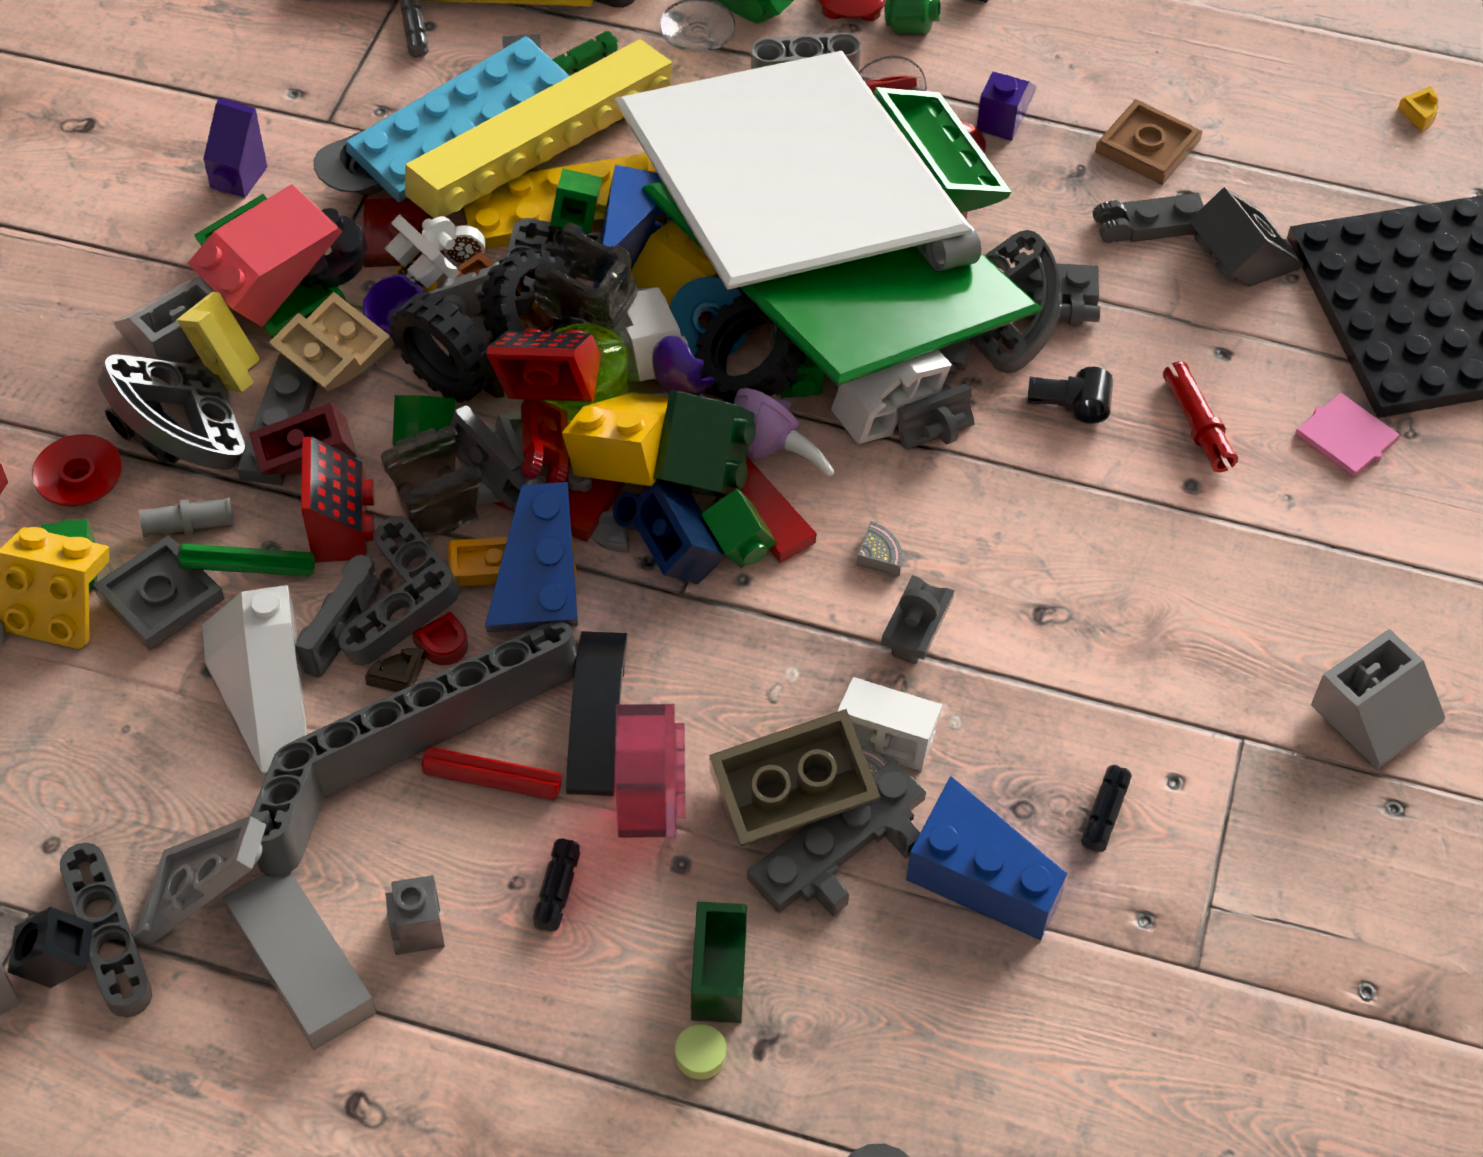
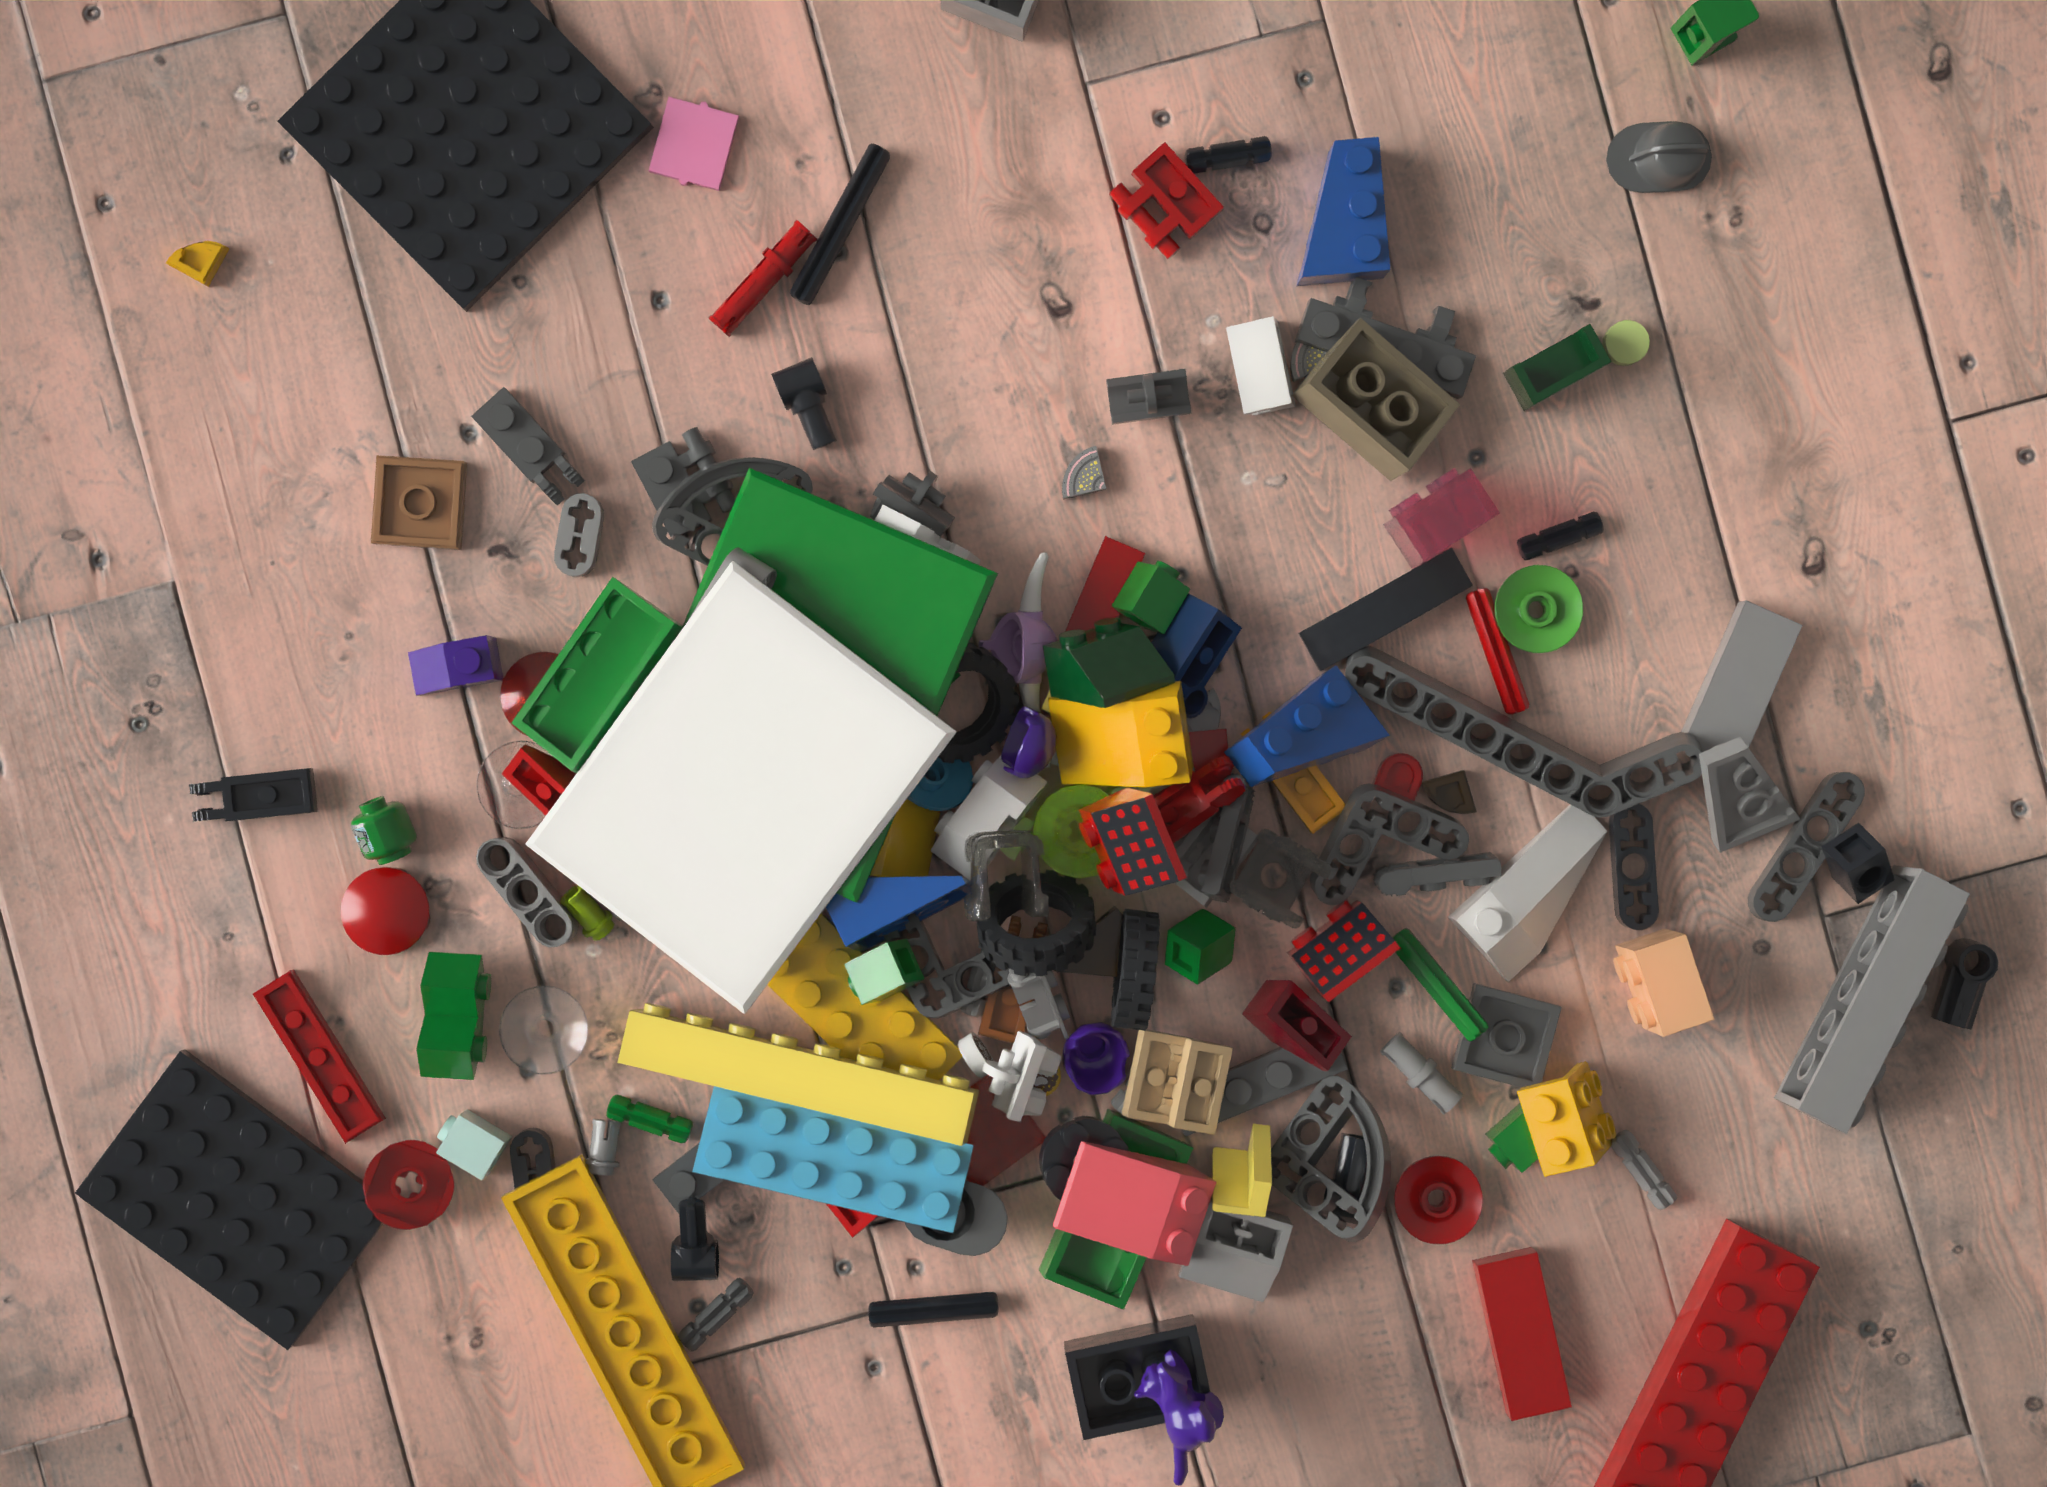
camera: 120 degrees left, 35 degrees up
(85, 193) = (1188, 1415): none -> dark purple animal
(94, 715) = (1662, 982): none -> light nougat brick
(136, 212) = (1110, 1368): none -> black brick
(202, 757) = (1626, 899): none -> black beam
(234, 149) = (1013, 1344): dark purple slope -> none
(302, 138) = (933, 1309): none -> black axle
(414, 915) = (1661, 618): flat silver window -> none
(469, 28) = (694, 1250): none -> black axle
(497, 803) = (1560, 605): none -> bright green dish
(579, 17) = (603, 1150): none -> light grey pin
(1059, 214) = (589, 537): none -> light grey beam
(1092, 744) = (1175, 191): none -> red plate
(1217, 493) = (840, 224): none -> black axle
(1243, 240) = (513, 339): dark grey slope -> none

